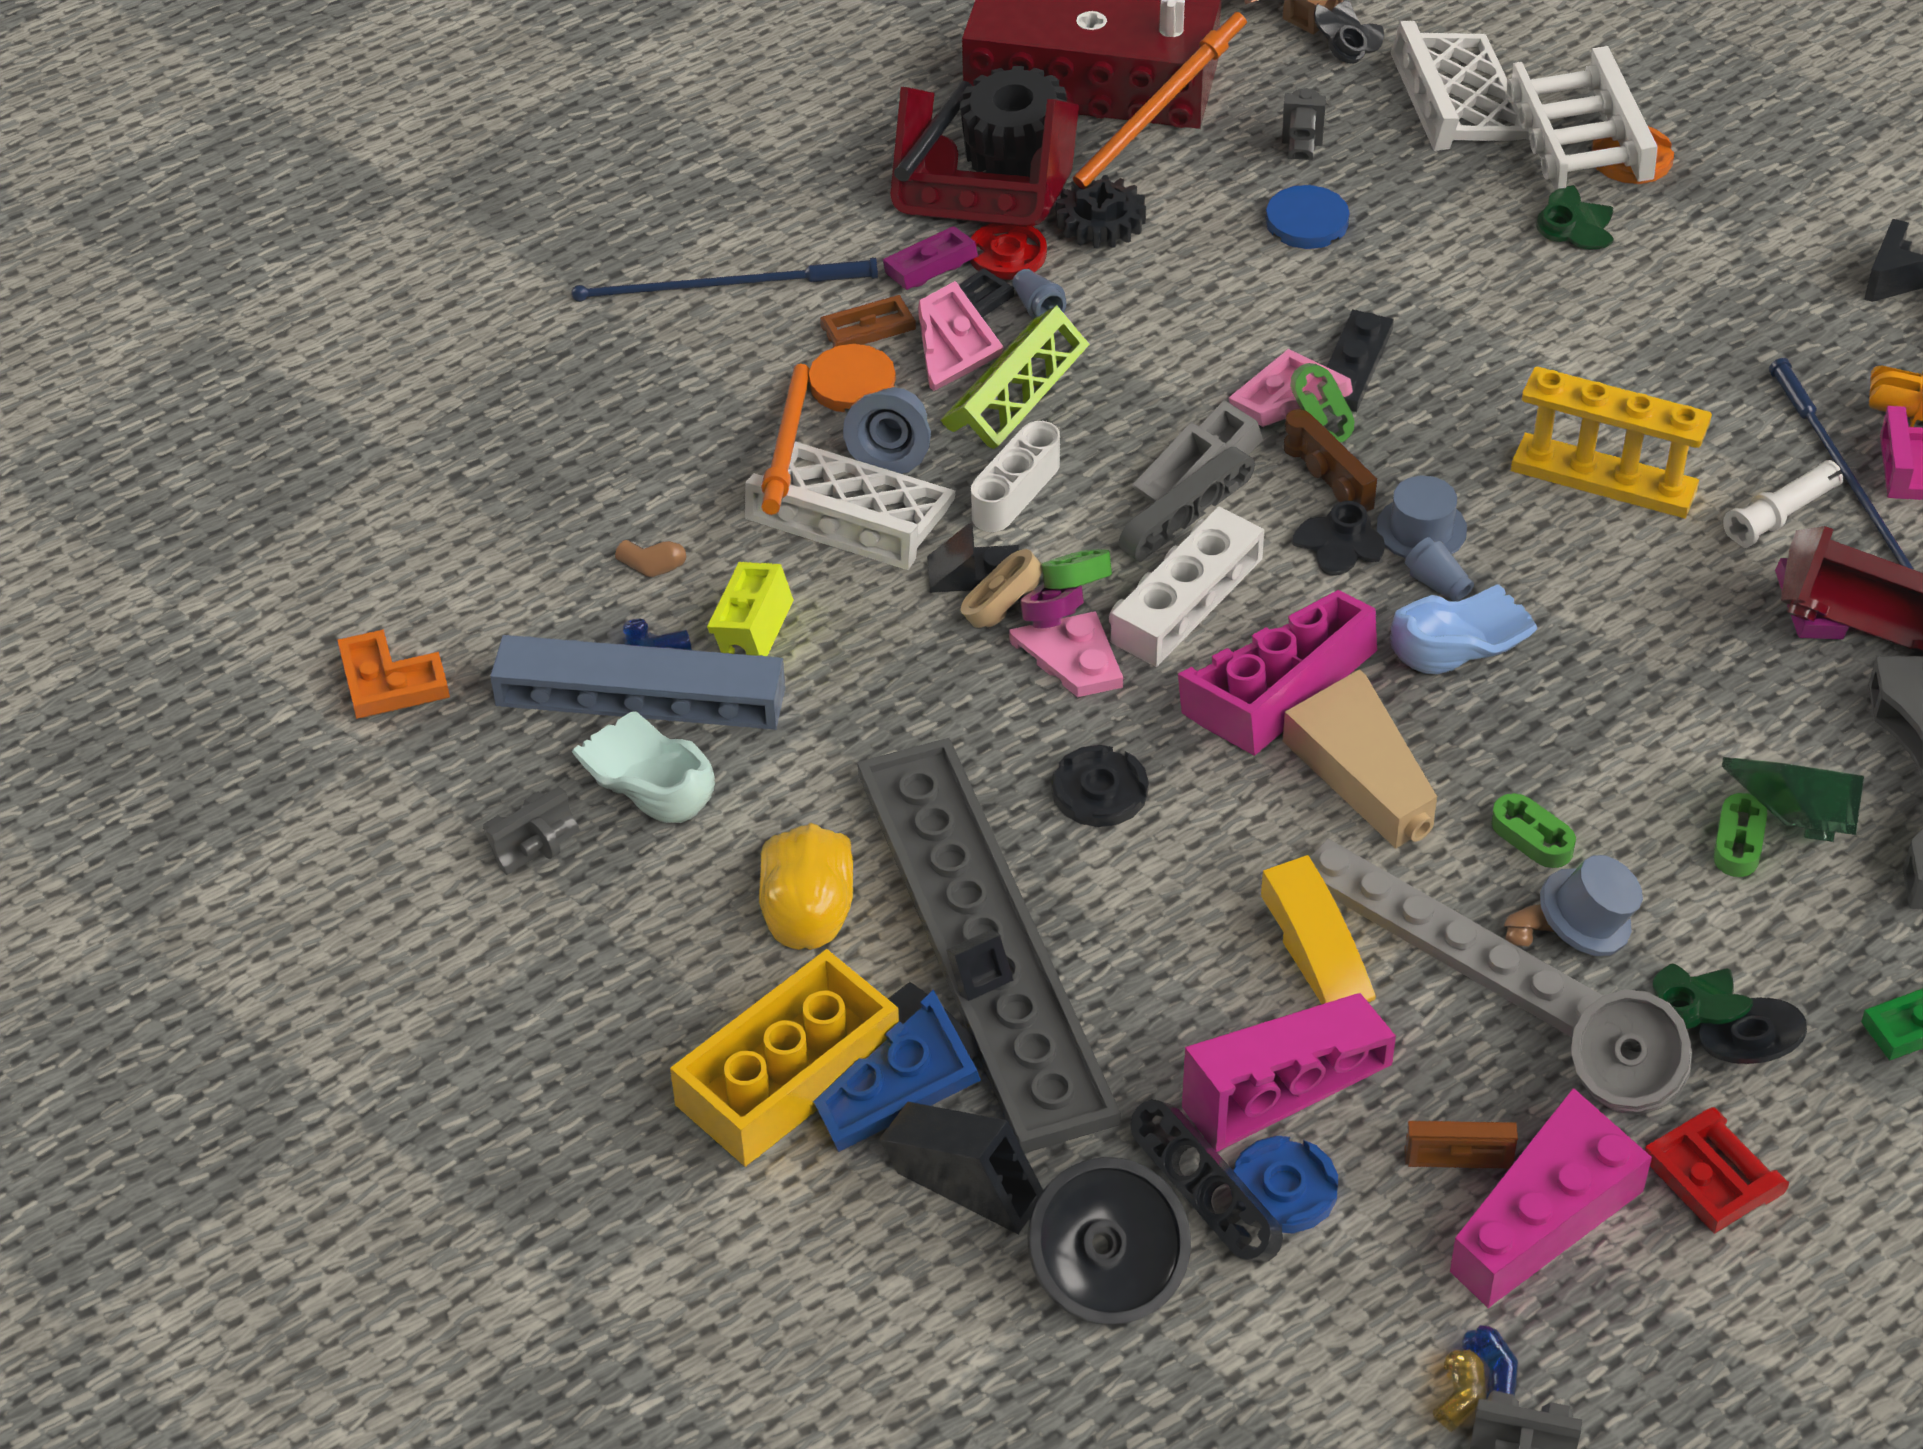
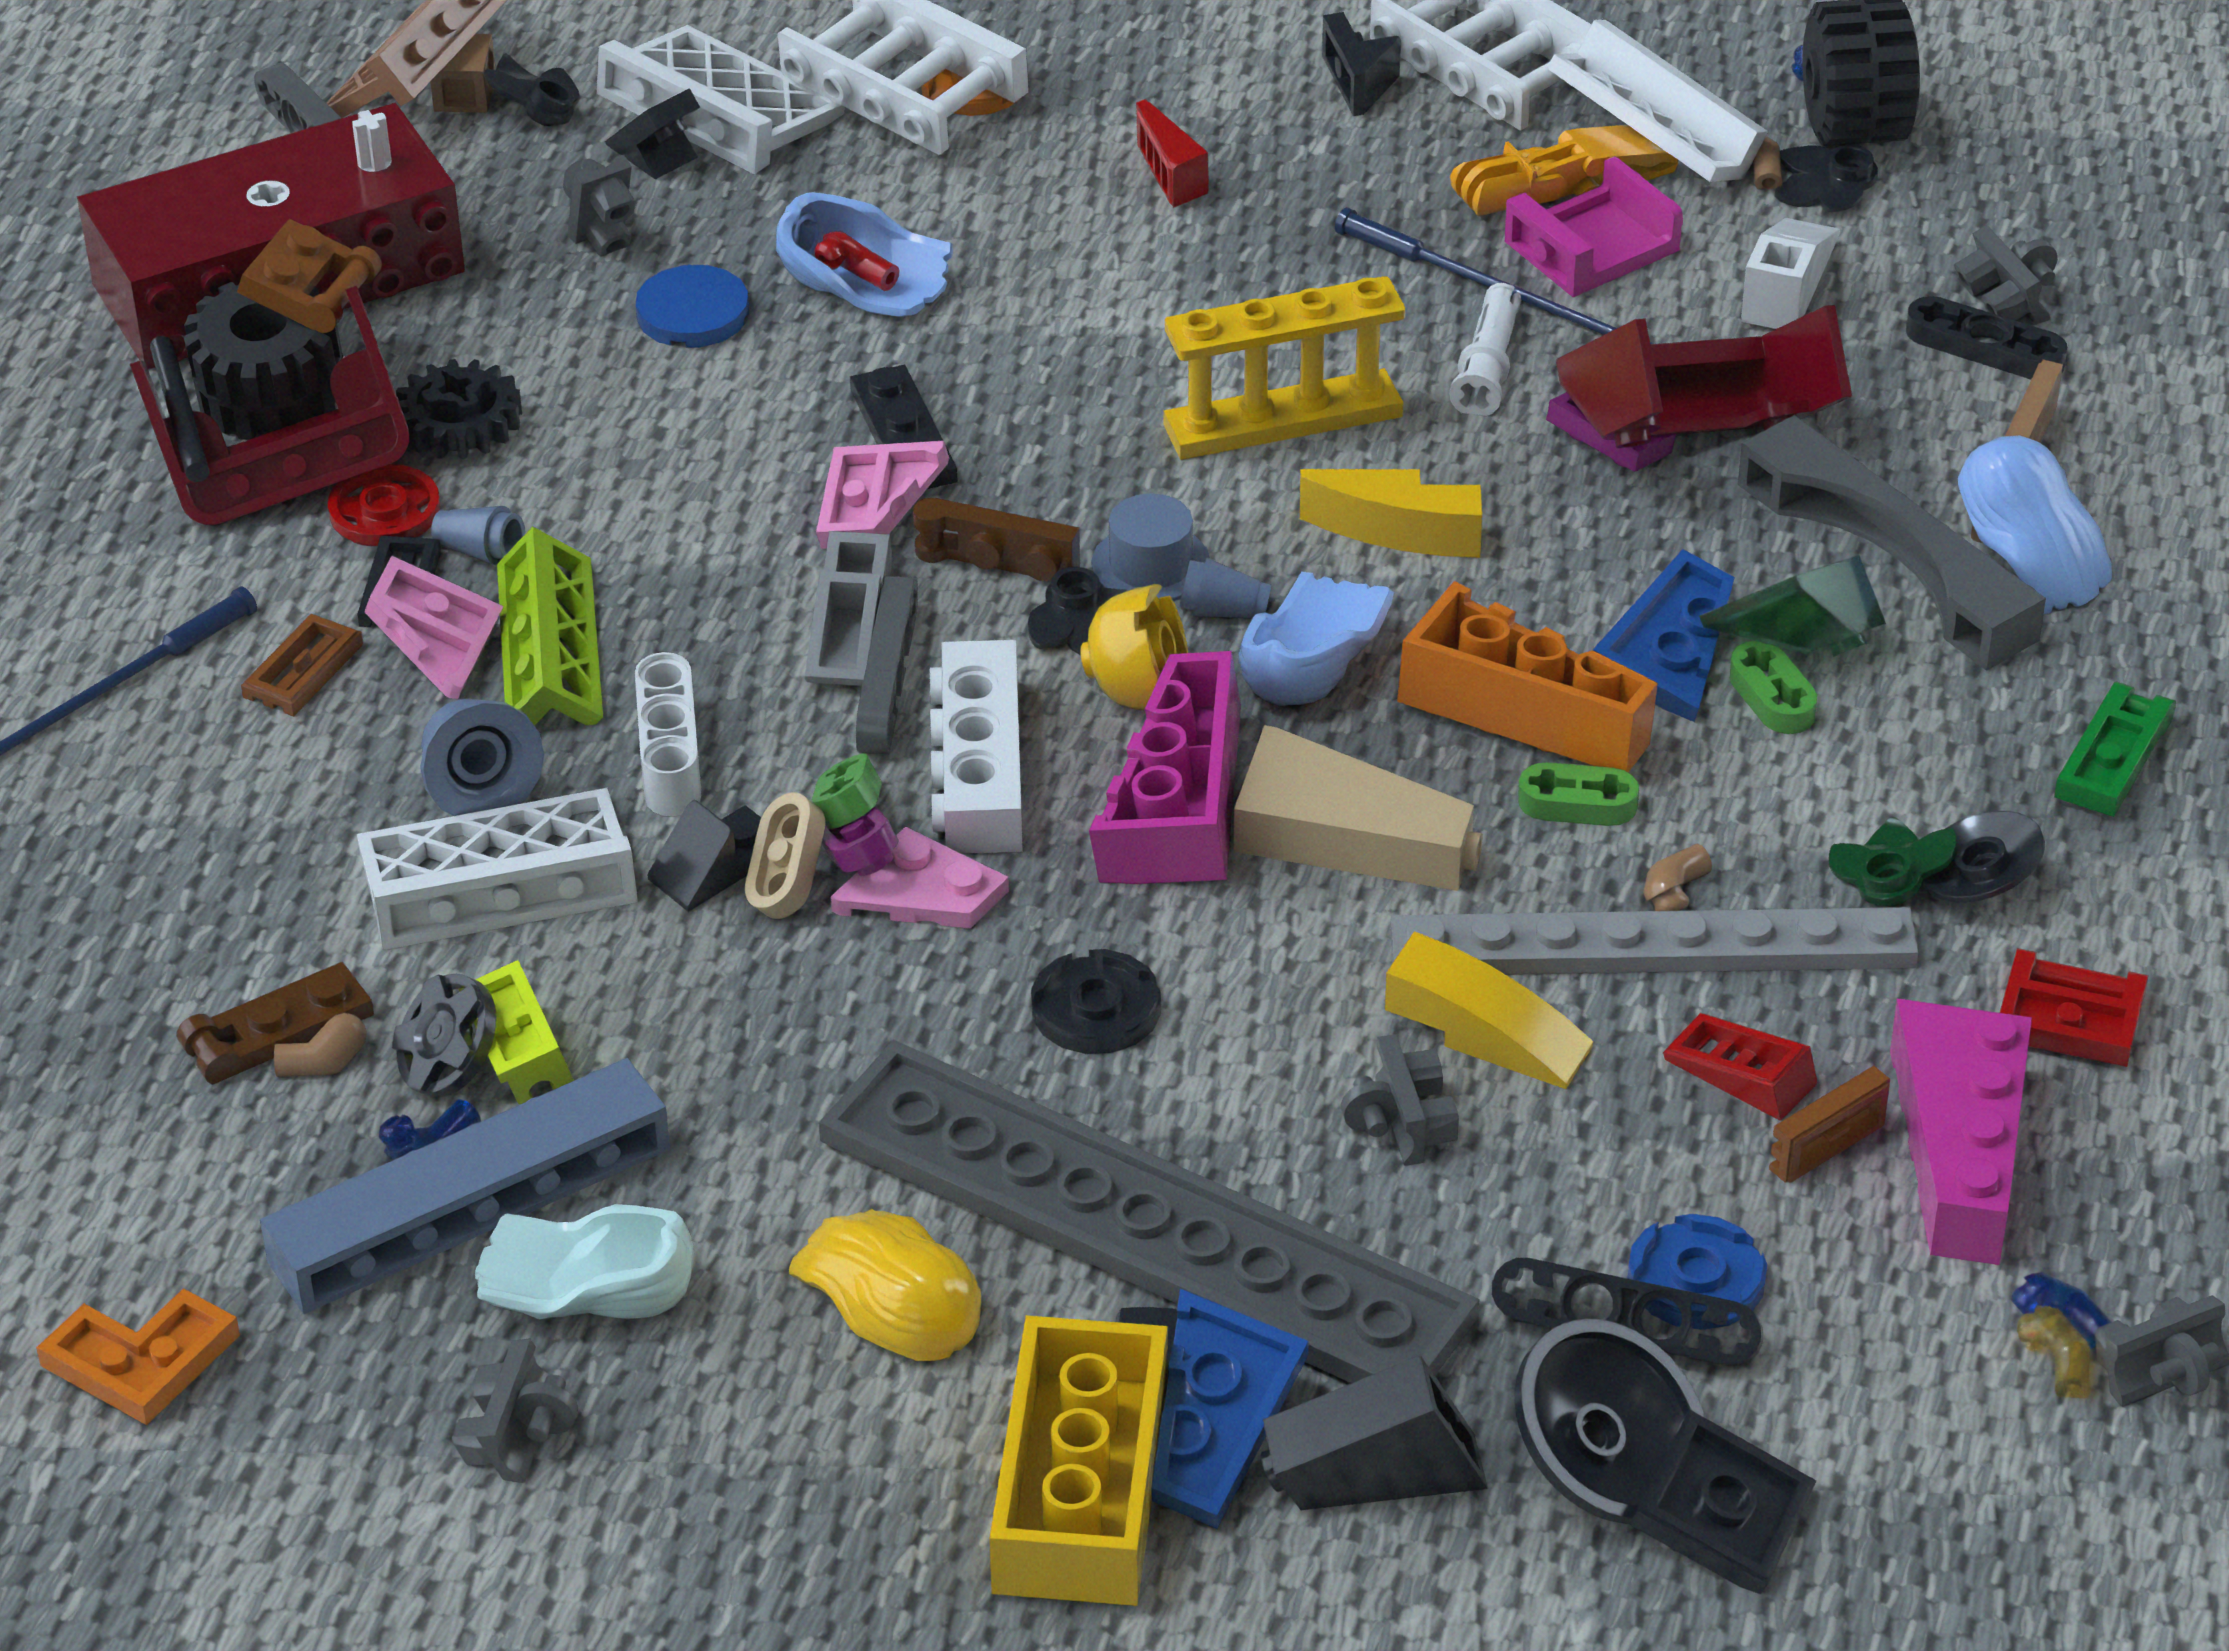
camera: 40 degrees left, 5 degrees down
(642, 526) = (279, 1017): none -> reddish brown plate
(709, 586) = (440, 1034): none -> black wheel
(777, 478) = (416, 870): orange bar -> none
(849, 373) = (349, 732): orange tile -> none
(930, 258) = (307, 554): magenta plate -> none
(980, 965) = (1193, 1238): black tile -> none
(1059, 72) = (295, 265): none -> dark orange plate
(1137, 1338) = (1723, 1503): none -> black plate
(1198, 959) = (1395, 1101): none -> dark grey hips
(1211, 47) = (453, 158): orange bar -> none
(1281, 1067) = (1593, 1155): dark pink wedge -> none
(1330, 395) = (939, 469): bright green beam -> none
(1342, 564) = (1132, 643): none -> yellow cylinder
(1389, 98) = (657, 136): none -> black slope
(1427, 236) = (844, 251): none -> red arm
(1432, 233) = (918, 257): none -> light blue hair
(1462, 1098) = (1774, 1088): none -> red slope
(1560, 735) = (1524, 683): none -> orange wedge
(1575, 221) = (987, 174): dark green plate -> none
(1592, 904) = (1721, 822): sand blue piece -> none
(1605, 577) = (1394, 510): none -> yellow slope
(1632, 1019) = (1914, 932): light grey wheel -> none
(1685, 763) = (1665, 635): none -> blue wing
(1701, 268) = (1172, 155): none -> red slope

